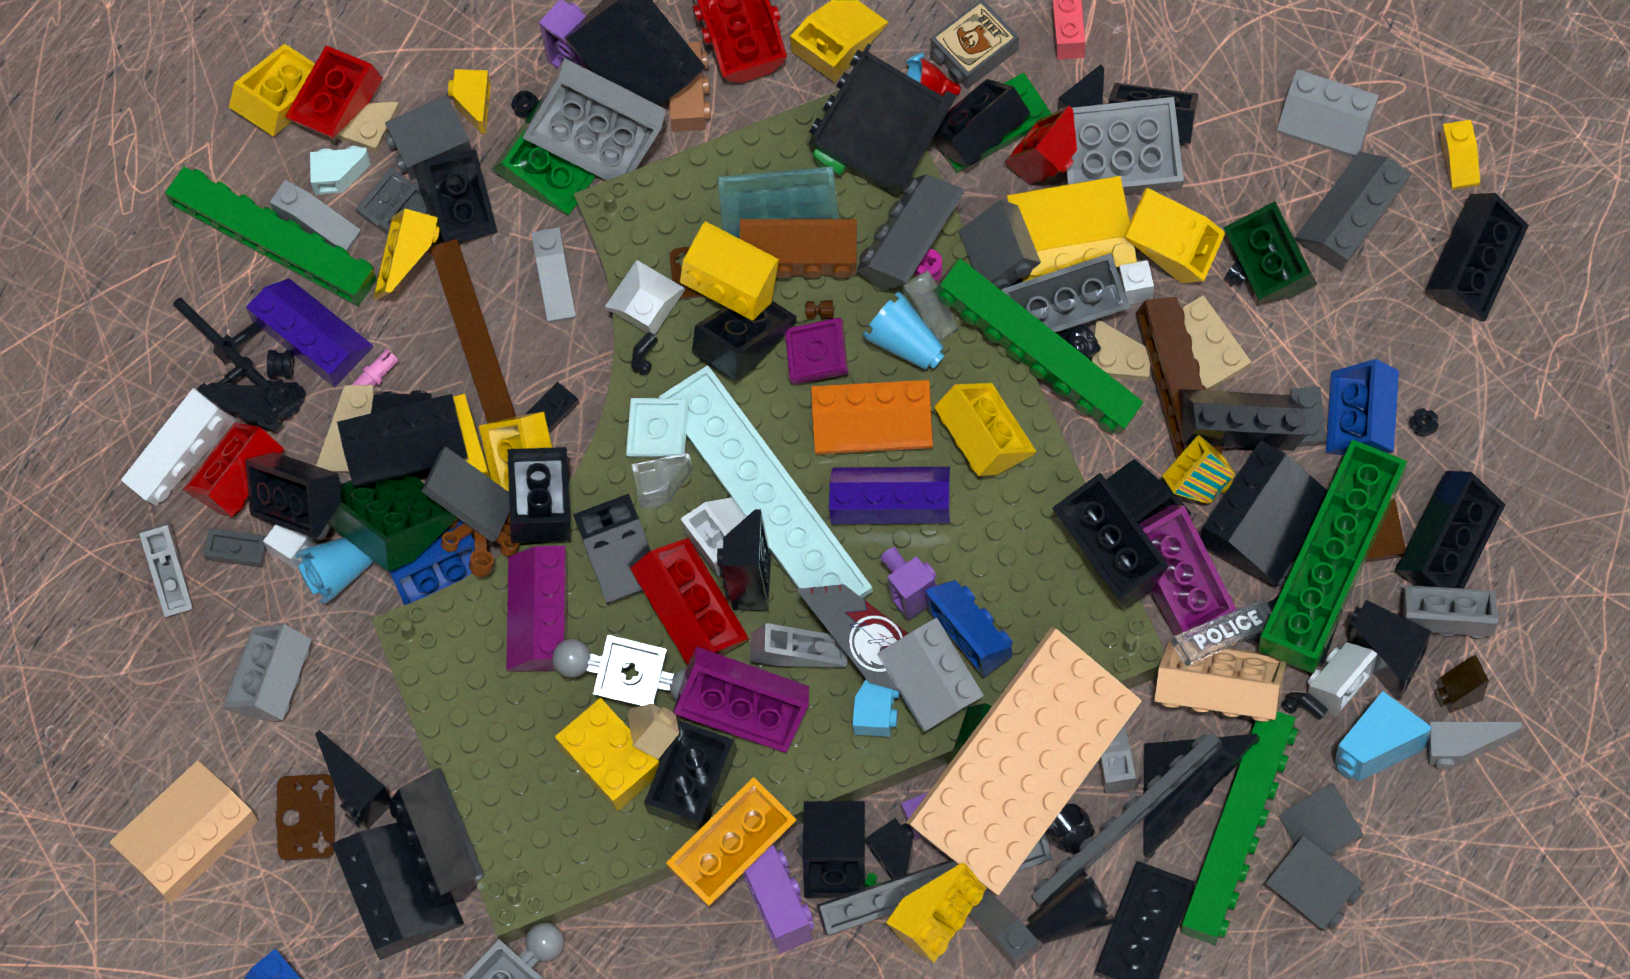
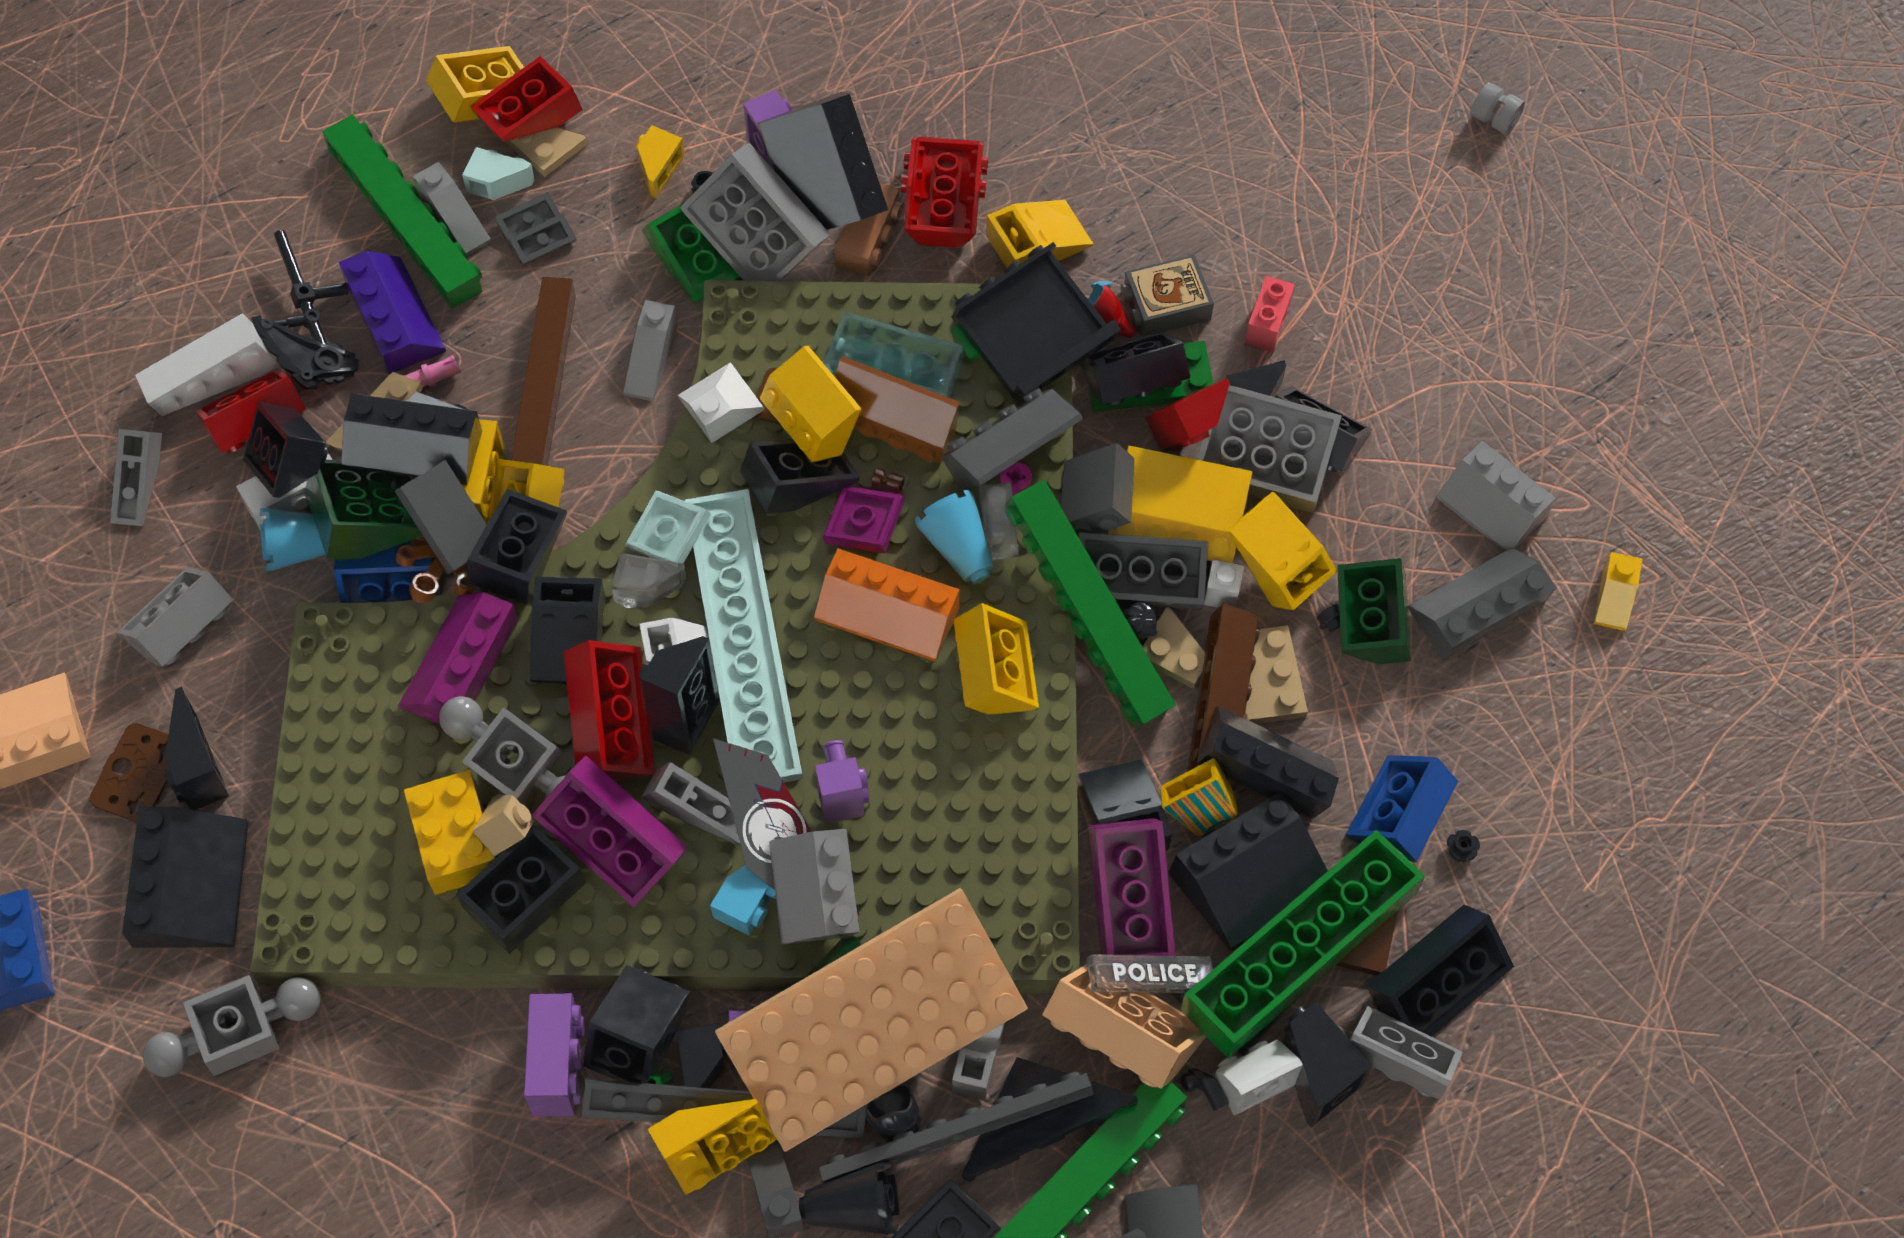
camera: 15 degrees right, 5 degrees down
(235, 547) = (210, 484): dark grey plate -> none
(280, 364) = (347, 330): black wheel -> none
(406, 242) = (521, 266): yellow slope -> none
(426, 135) = (595, 179): dark grey brick -> none
(436, 839) = (241, 847): black slope -> none
(456, 195) = (593, 240): black slope -> none
(556, 405) = (586, 477): black plate -> none
(639, 363) = (687, 452): black arm -> none
(730, 842) = (525, 973): light orange slope -> none
(889, 495) = (866, 689): dark purple slope -> none
(969, 626) = (882, 853): blue slope -> none
(1112, 540) = (1069, 827): black slope -> none
(1311, 401) = (1350, 782): dark grey plate -> none
(1381, 739) = (1268, 1159): medium azure slope -> none
(1460, 742) = (1359, 1200): light grey slope -> none
(1462, 685) = (1383, 1138): dark brown slope -> none
(1477, 256) = (1592, 699): black slope -> none

